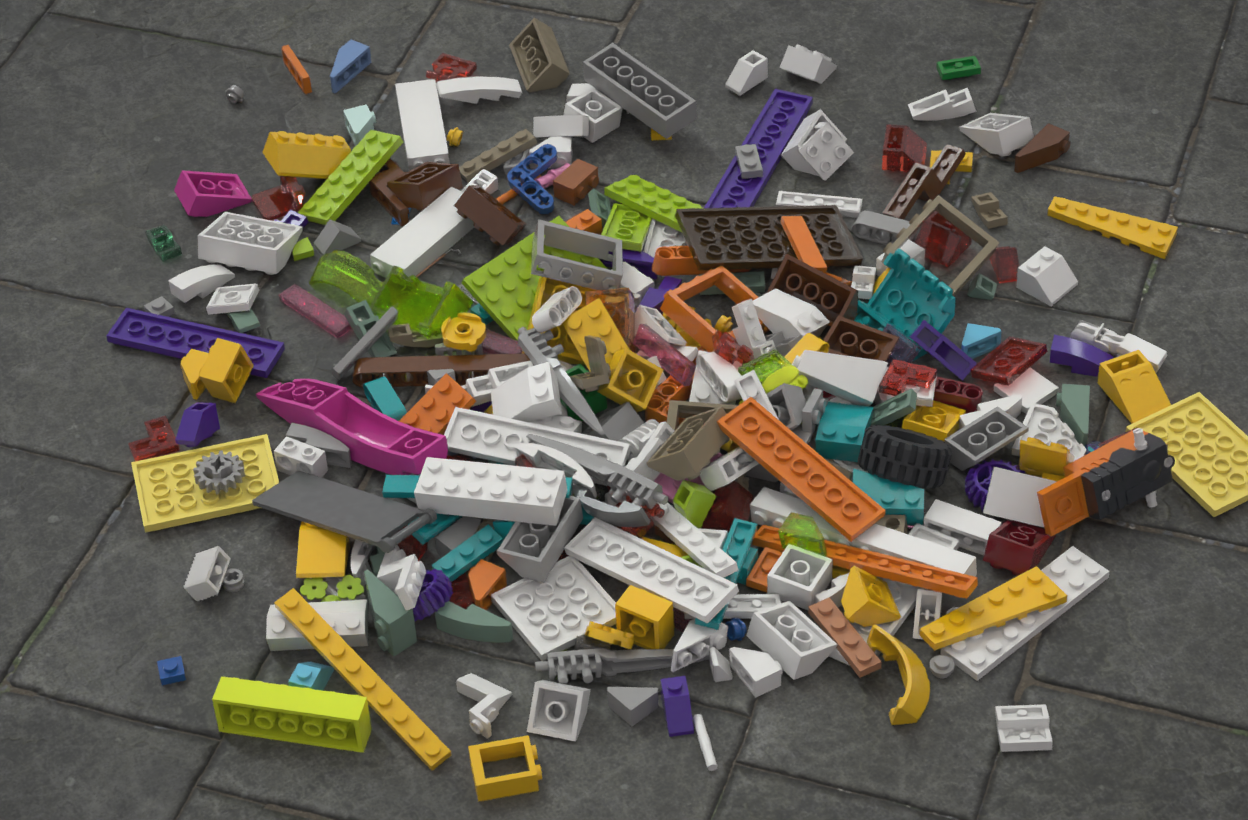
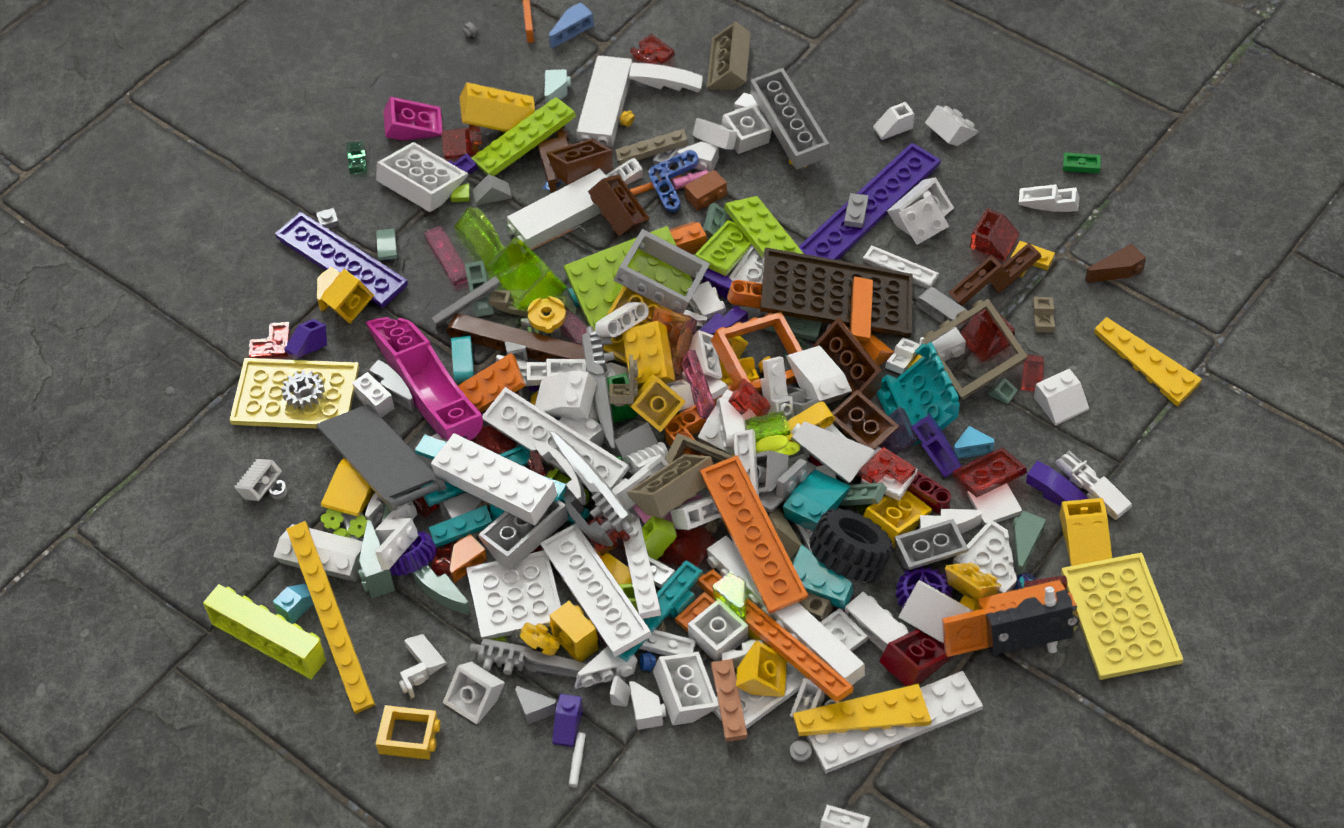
camera: 20 degrees right, 10 degrees up
(171, 670) = (198, 558): blue plate -> none
(199, 281) = (368, 202): white slope -> none
(232, 299) = (385, 227): white tile -> none
(913, 673) = (771, 755): yellow windscreen -> none
(999, 132) = (1086, 239): white slope -> none

